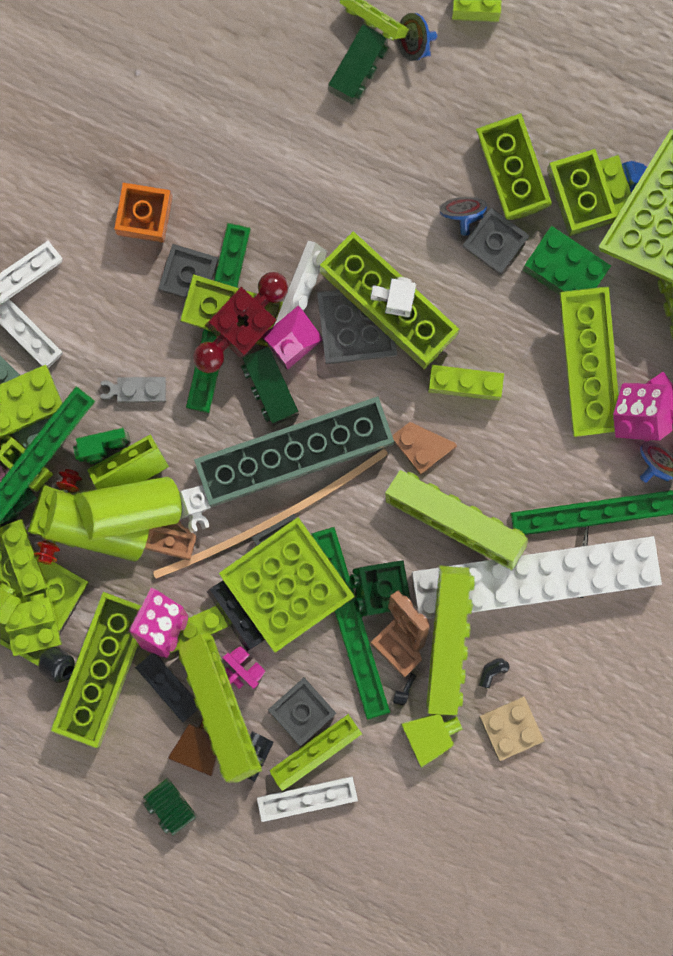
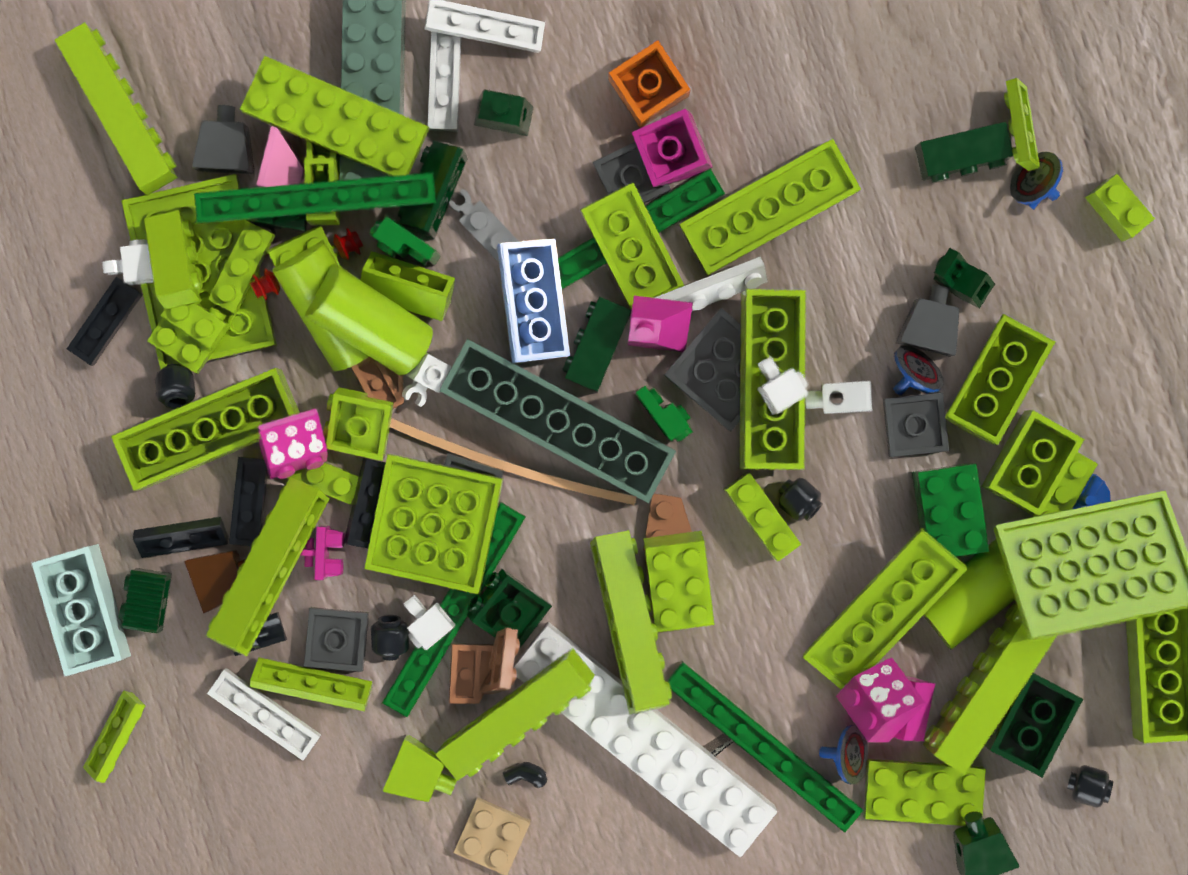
camera: 45 degrees right, 5 degrees up
(77, 374) = (447, 165): none -> dark green slope
(78, 314) = (504, 112): none -> dark green torso
(138, 851) = (81, 610): none -> light aqua brick
(151, 749) = (180, 537): none -> black plate
(183, 574) = (357, 424): none -> lime plate
(194, 234) = (672, 149): none -> dark pink slope
(208, 400) = (533, 300): none -> light blue brick
(209, 355) = (685, 265): dark red brick -> none
(235, 905) = (114, 736): none -> lime plate
(284, 207) = (770, 207): none -> lime plate
(331, 676) = (389, 637): none -> black head
(345, 644) = (430, 624): none -> white brick
(357, 383) = (670, 420): none -> green plate
(401, 697) = (430, 715): black hand -> none
(433, 134) = (962, 278): none -> dark green brick
(443, 176) = (932, 324): none -> dark grey torso
(443, 259) = (855, 397): none -> white torso
(458, 467) = (679, 581): none -> lime brick
(476, 350) = (800, 499): none -> black head
(631, 302) = (973, 598): none -> lime brick

